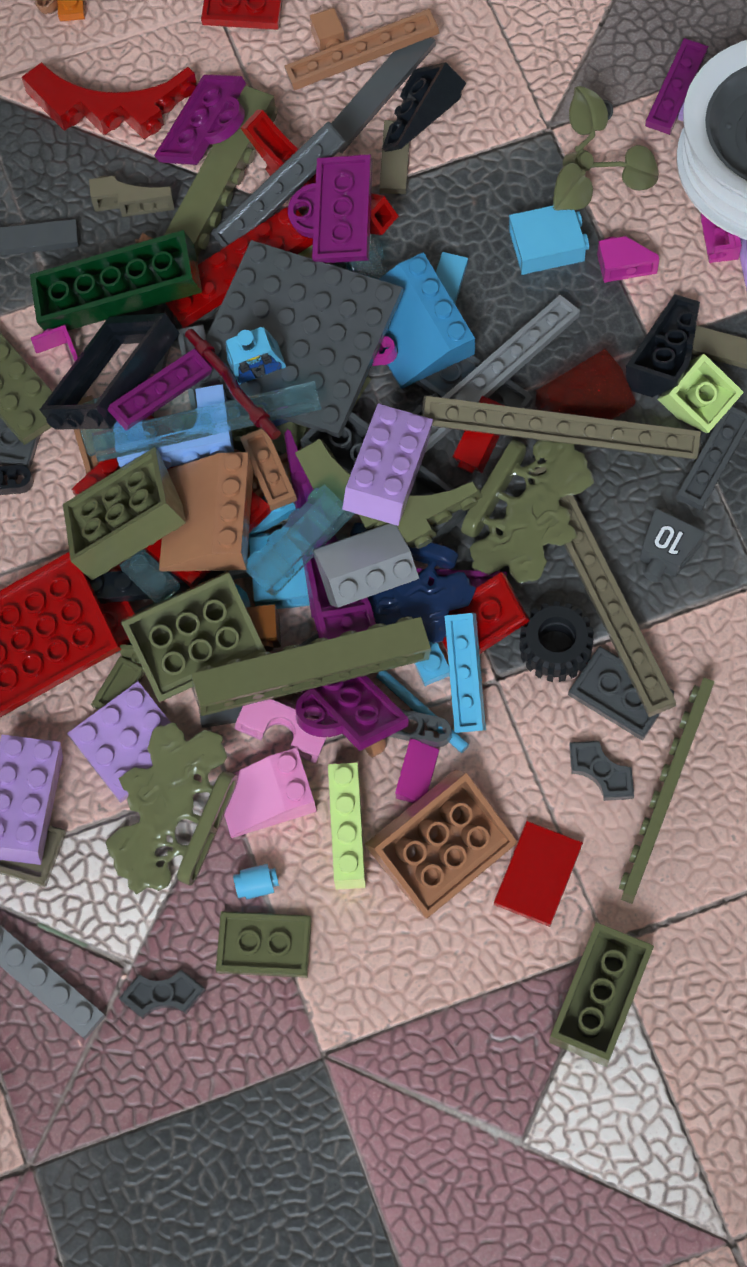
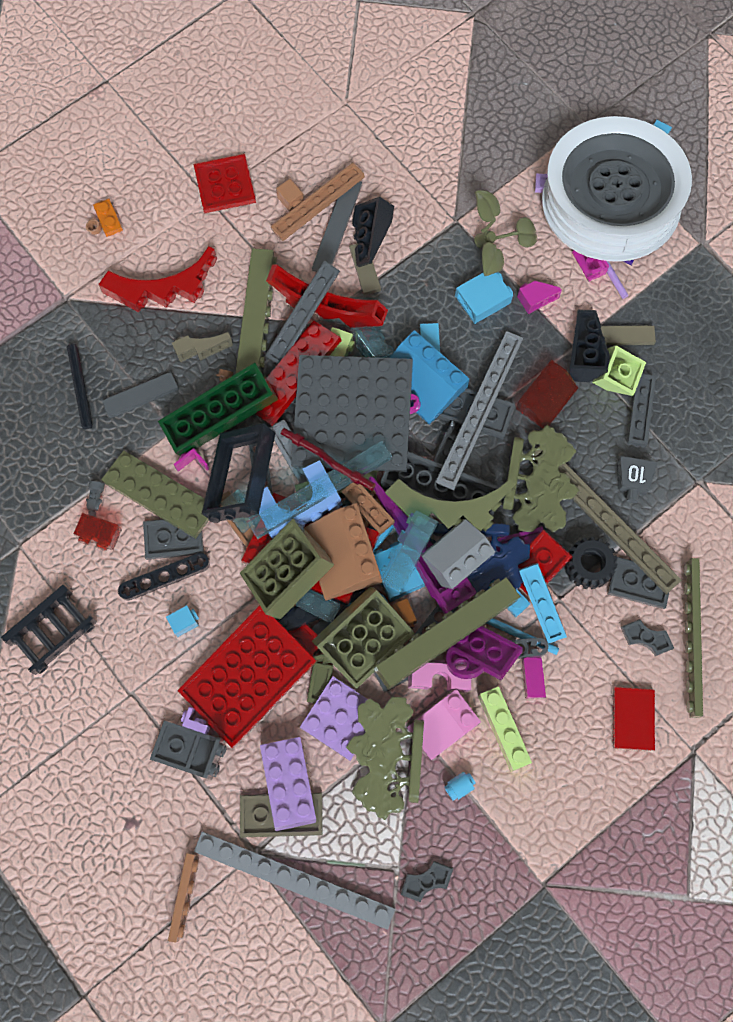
camera: 25 degrees left, 5 degrees up
(159, 389) = (280, 477): magenta plate -> none
(206, 119) = (232, 279): magenta plate -> none
(253, 354) = (334, 435): medium azure torso -> none
(263, 944) = (479, 825): olive tile -> none
(337, 209) = (351, 318): magenta plate -> none
(387, 464) = (453, 484): lavender brick -> none
(441, 842) = (567, 719): nougat slope -> none
(475, 447) = (494, 441): red brick -> none
(561, 427) = (543, 422): dark tan plate -> none
(601, 994) = (706, 786): olive brick -> none
(676, 85) = (527, 170): magenta plate -> none

